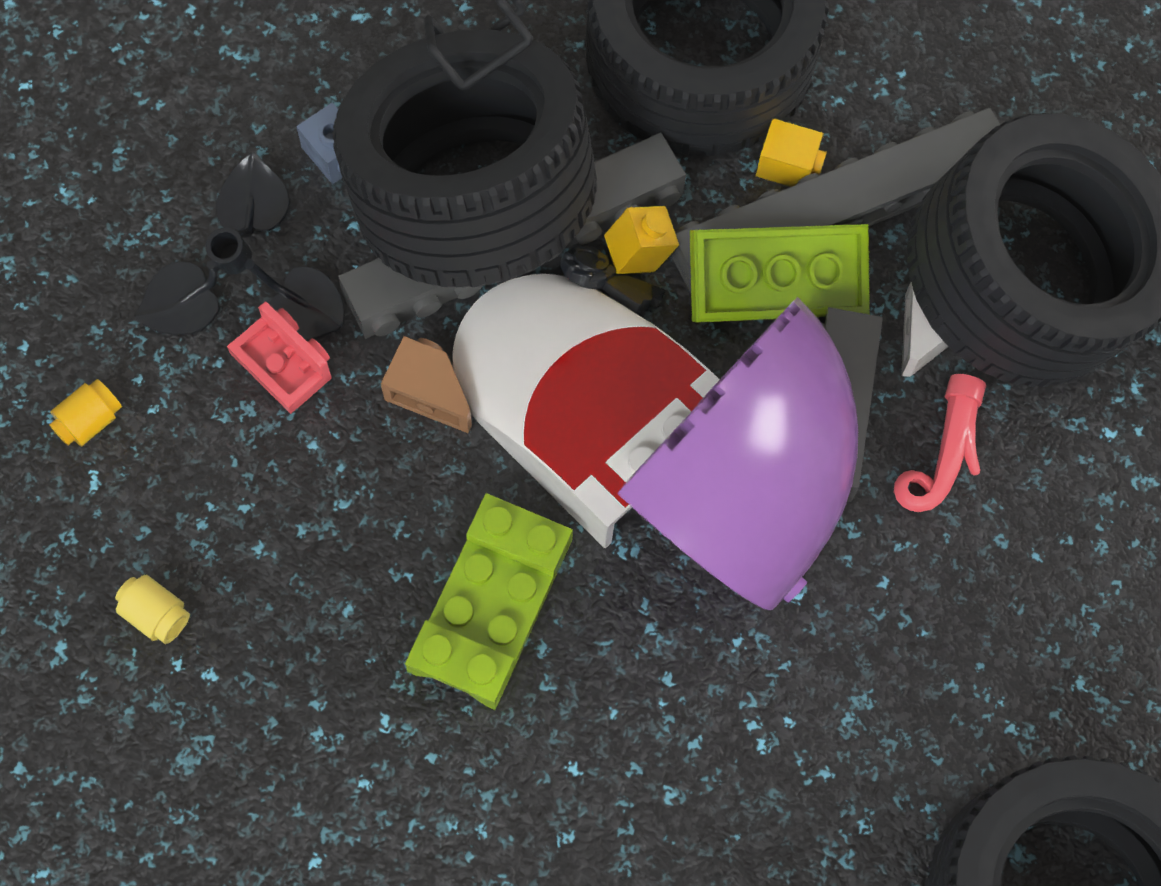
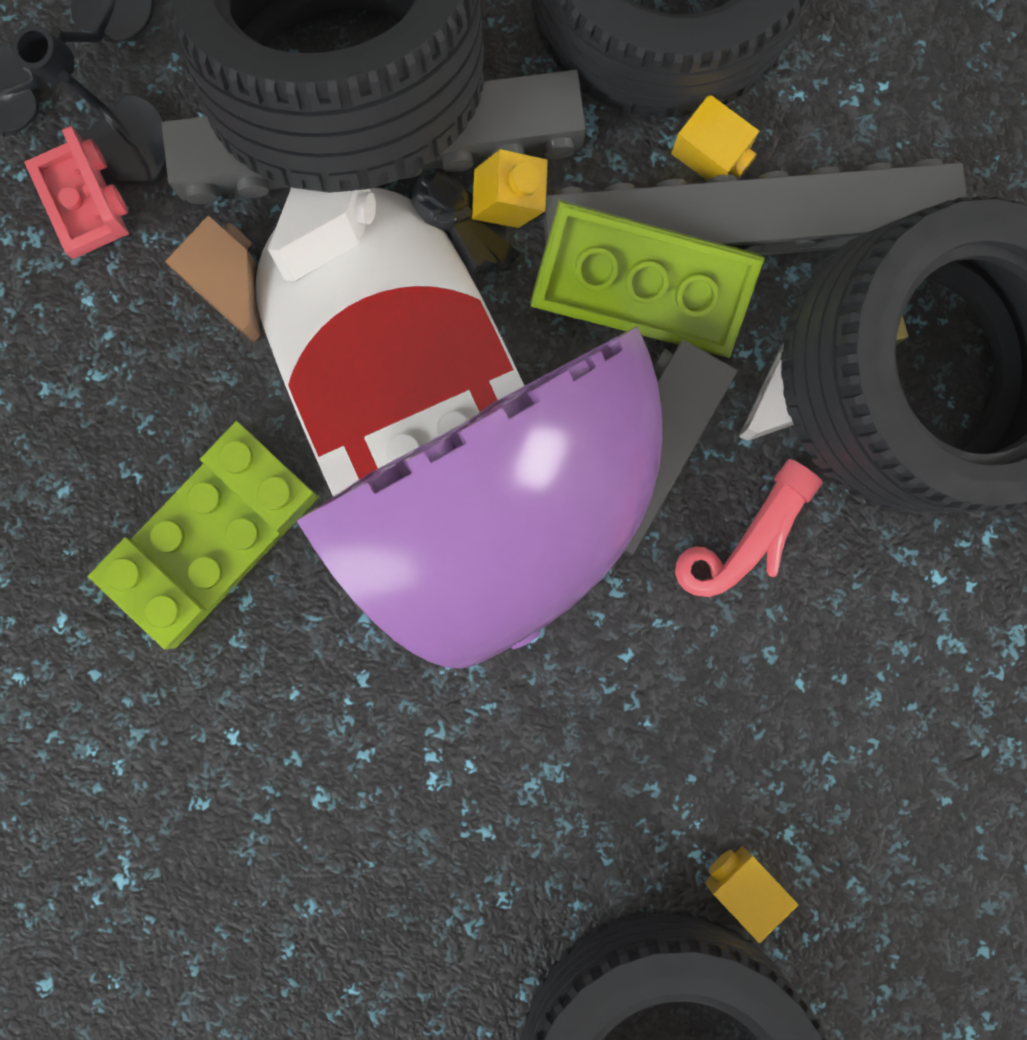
camera: 20 degrees right, 15 degrees up
(503, 314) = (318, 228): none -> white slope
(1067, 731) = (749, 892): none -> yellow brick

